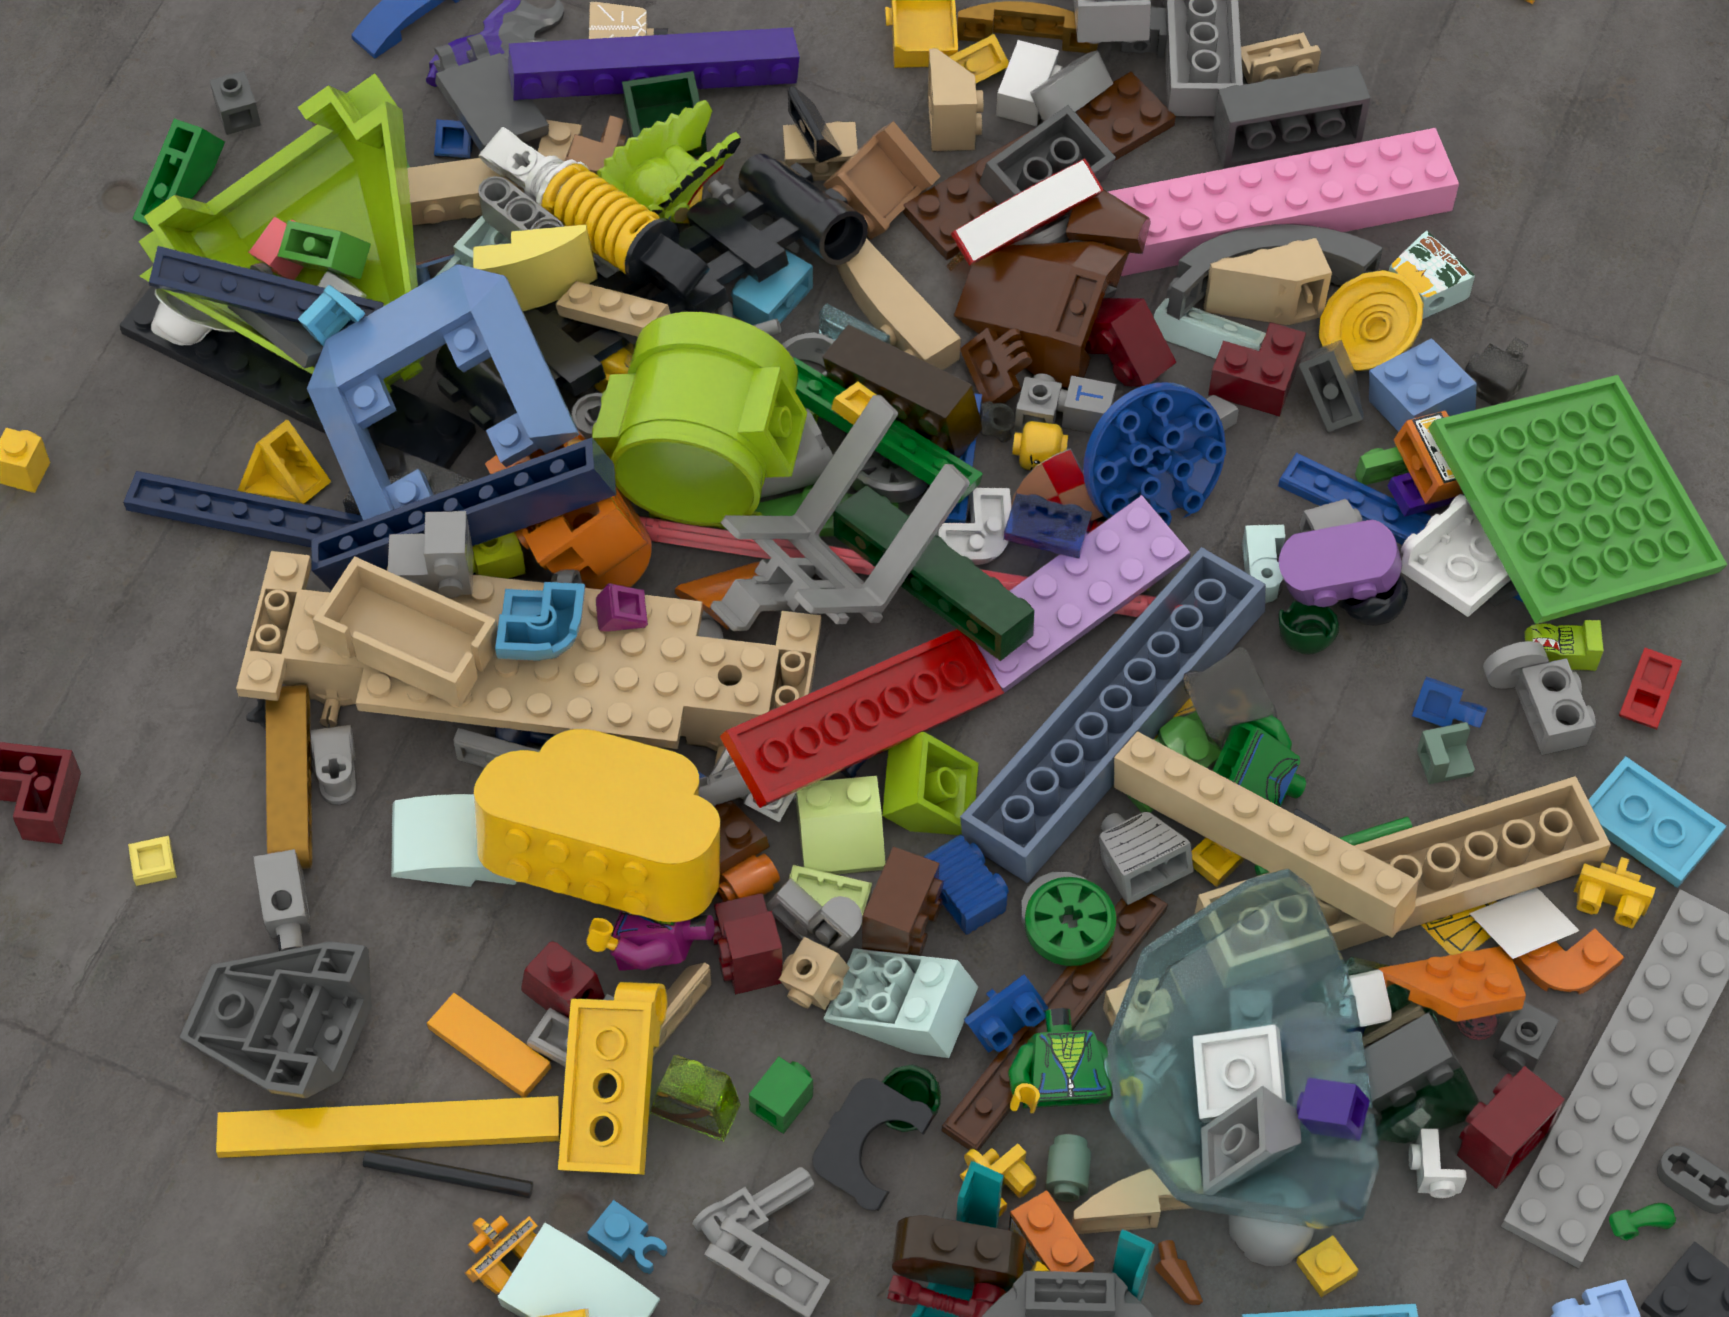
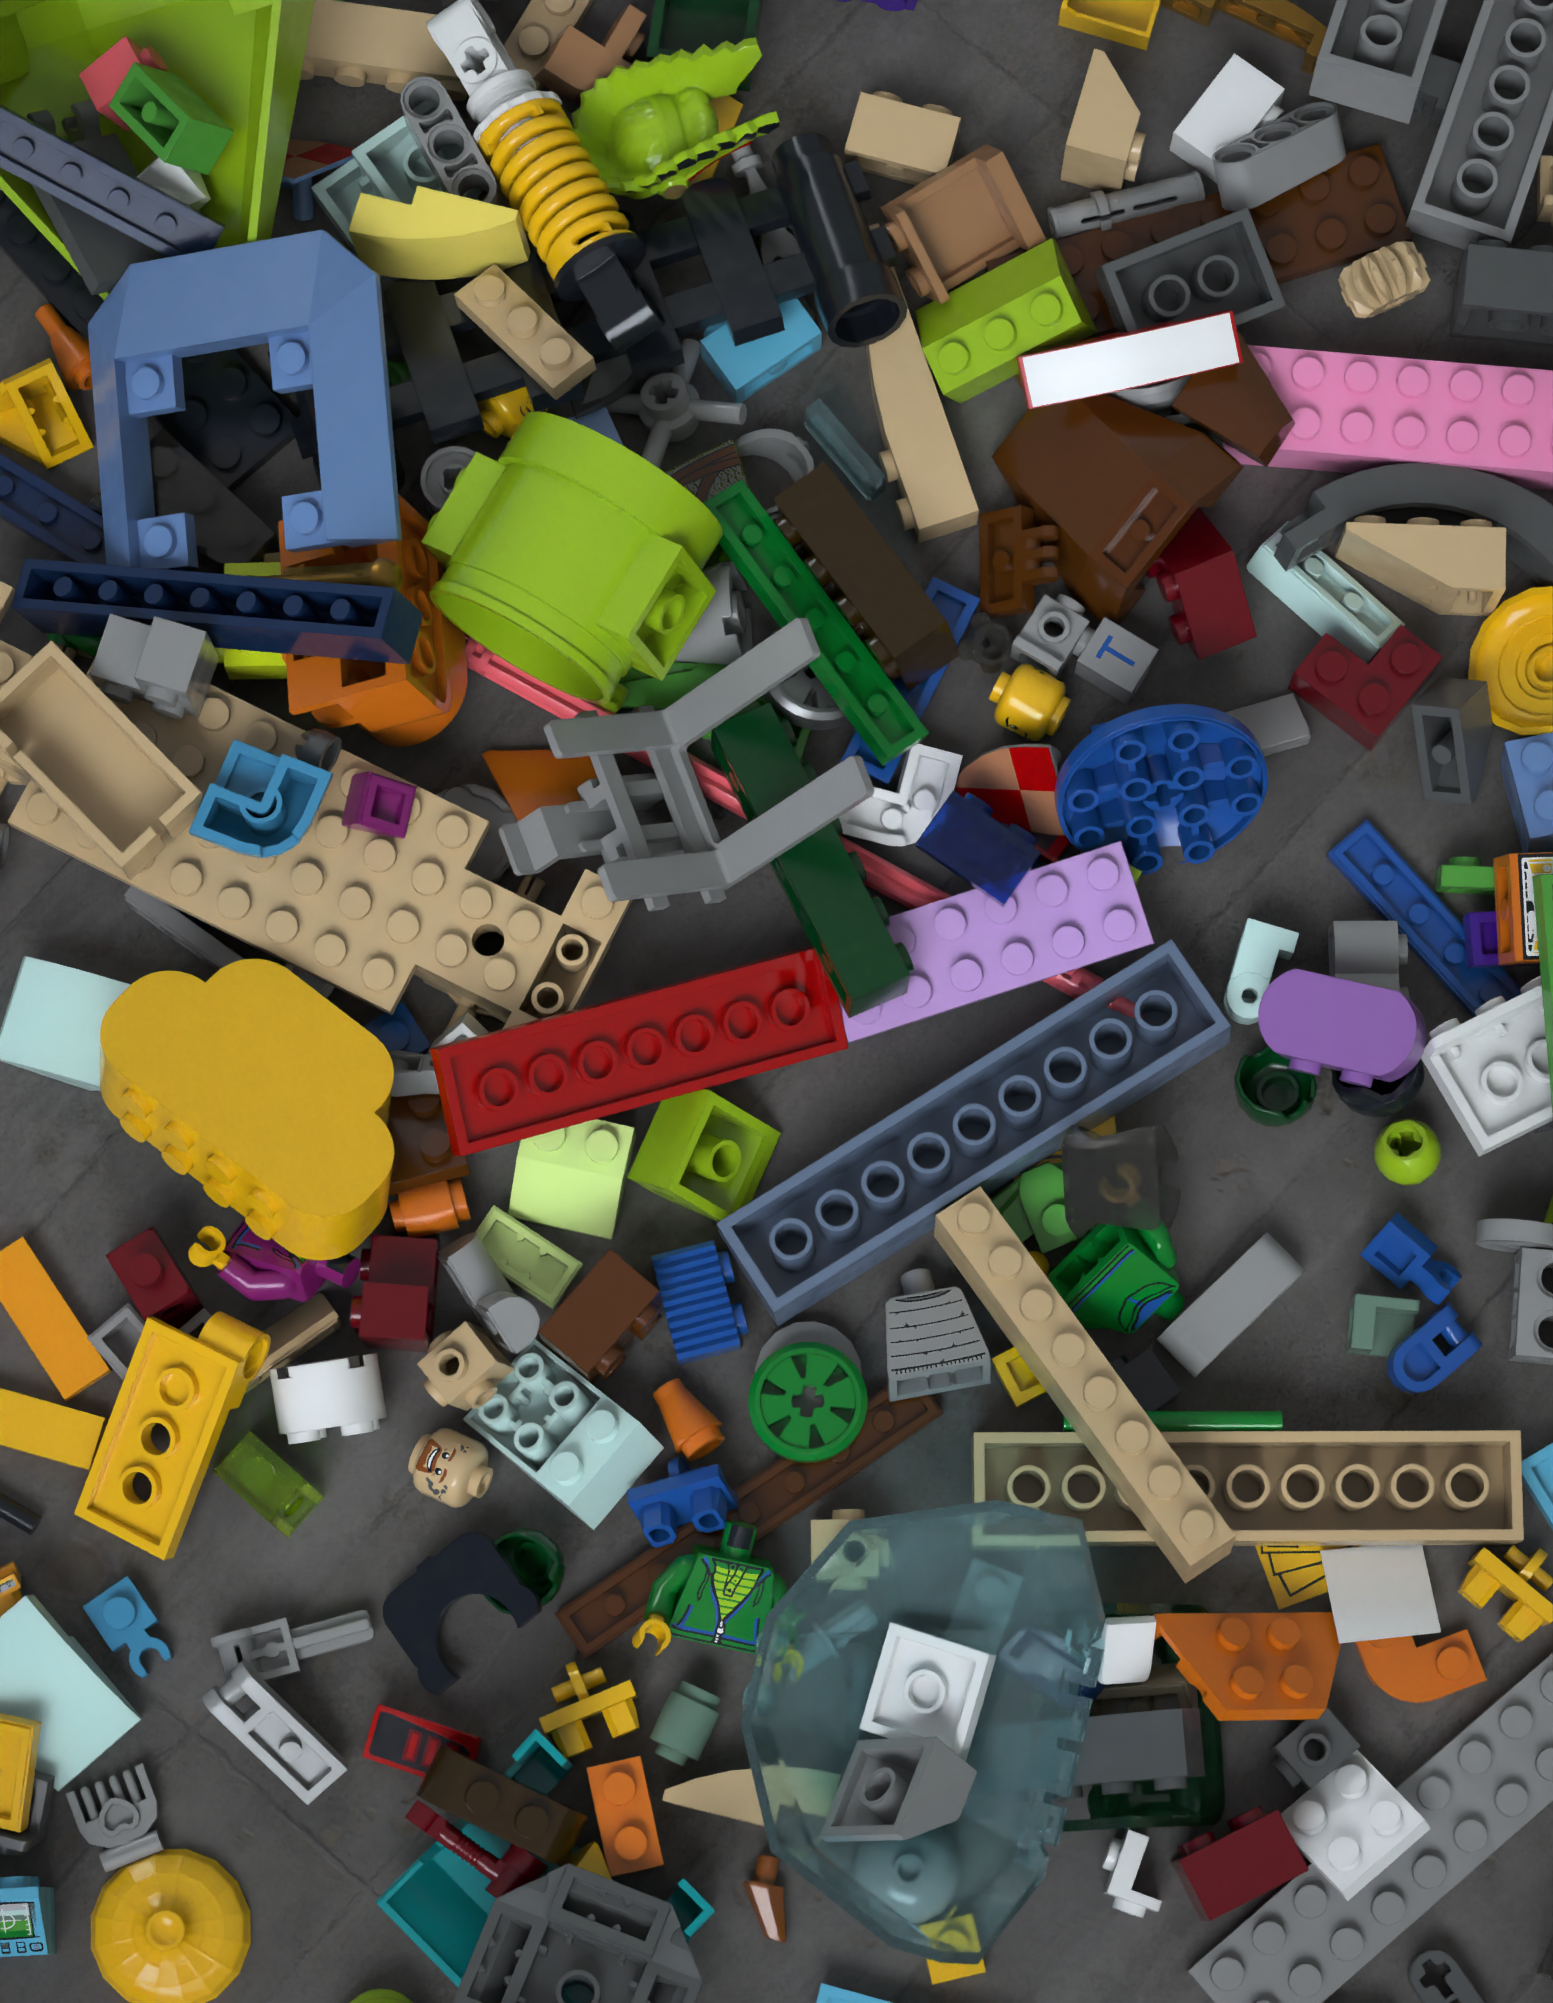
camera: 20 degrees right, 20 degrees up
(307, 425) = (69, 349): none -> orange cone
(329, 314) = (142, 235): medium azure tile -> none
(721, 1022) = (328, 1396): none -> white brick
(781, 1094) = (374, 1508): green brick -> none
(812, 126) = (898, 112): black slope -> none
(828, 1047) = (450, 1467): none -> tan head
(852, 402) = (794, 591): yellow plate -> none
(865, 1248) = (411, 1741): none -> slope
(921, 237) = (1000, 316): none -> lime slope
(948, 165) = (1107, 209): none -> light grey pin
(982, 58) = (1164, 63): yellow plate -> none
(989, 965) = (688, 1421): none -> orange cone
(1169, 138) = (1384, 279): none -> tan gear
(1333, 1108) = (1013, 1792): dark purple brick -> none
(1338, 771) = (1231, 1304): none -> light grey beam
(1415, 638) = (1407, 1151): none -> lime piece
(1484, 767) = (1419, 1364): none -> blue plate
(1583, 1074) = (1353, 1825): none -> white plate

